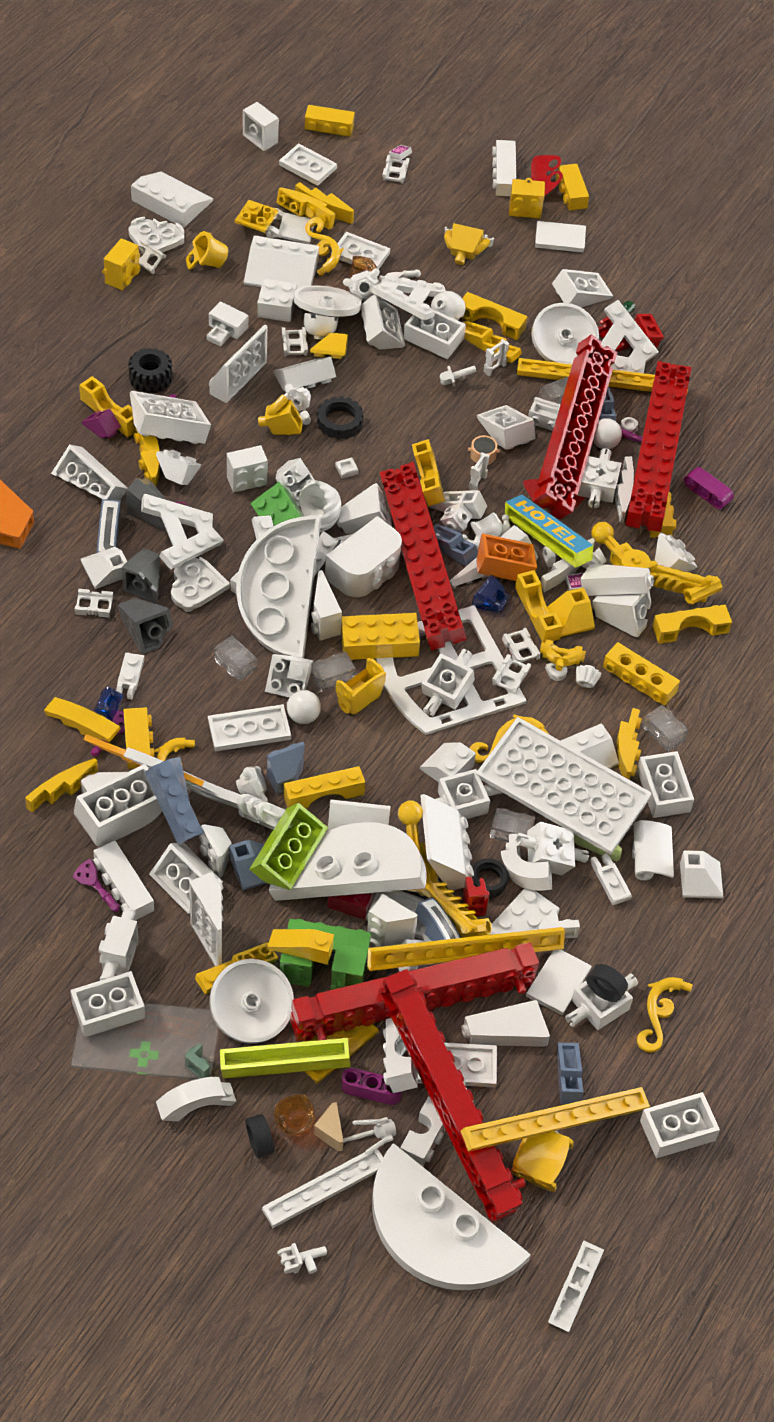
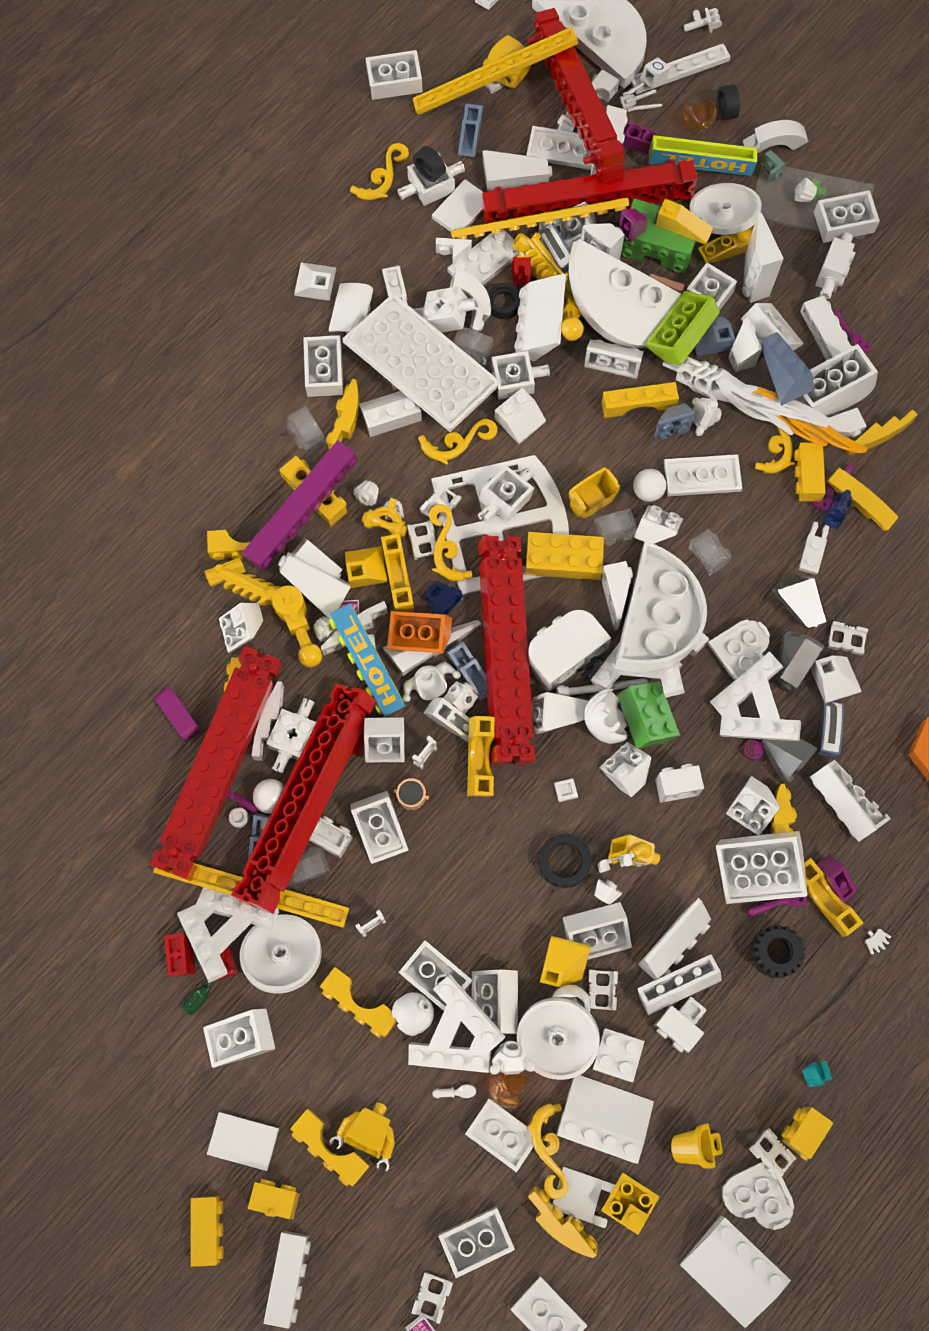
camera: 165 degrees left, 20 degrees up
(63, 391) = (876, 940): none -> white piece
(113, 303) = (817, 1074): none -> teal piece
(157, 1034) = (805, 191): none -> white piece
(227, 343) = (679, 984): none -> white brick
(260, 906) = (713, 283): none -> white brick
(310, 904) = (670, 283): none -> tile
(329, 1128) = (671, 108): tan slope -> none
(342, 210) = (531, 1228): yellow slope -> none
(355, 1155) = (655, 73): none -> white brick
(360, 928) = (632, 224): none -> magenta slope
(369, 192) = (476, 1242): none -> white brick
(448, 377) = (431, 904): white arm -> none
(484, 339) = (372, 963): yellow slope -> none
(502, 635) = (451, 574): none -> yellow plant
(510, 241) = (349, 1166): none -> yellow arch
(517, 474) = (384, 739): none -> white brick
(540, 167) = (241, 1270): red piece -> none
(648, 643) = (300, 505): none -> magenta brick

